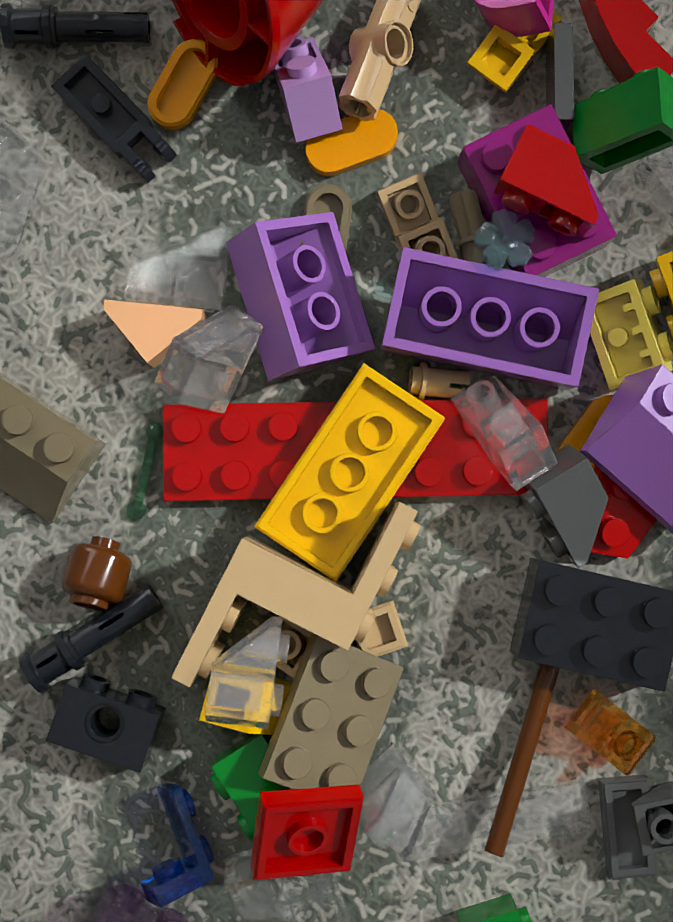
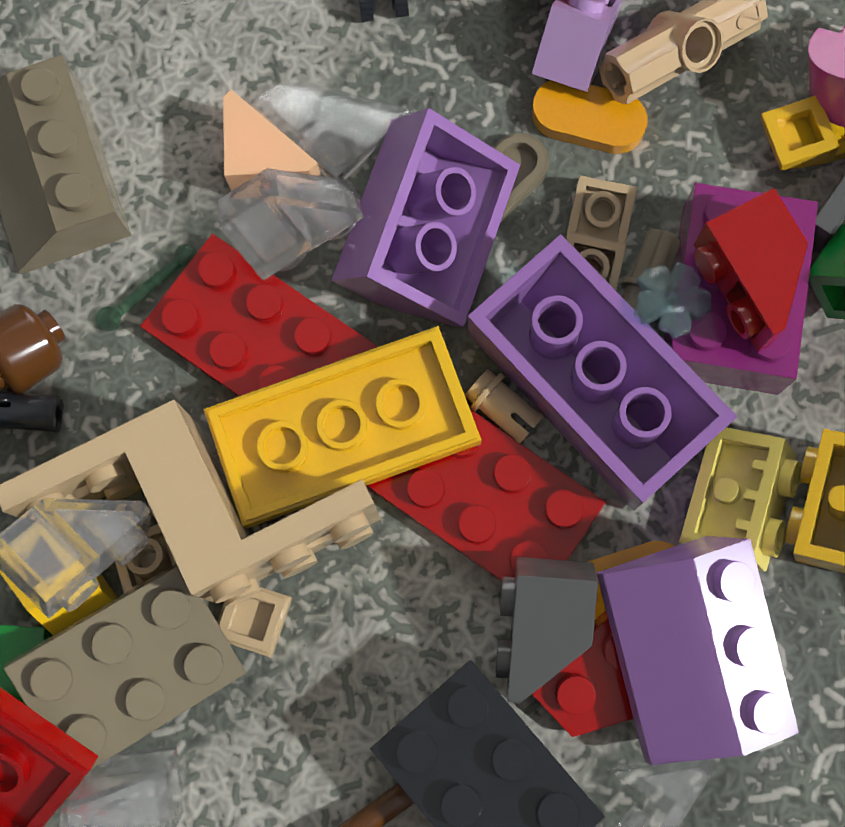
camera: 45 degrees right, 10 degrees down
(505, 431) = (533, 498): clear slope -> none

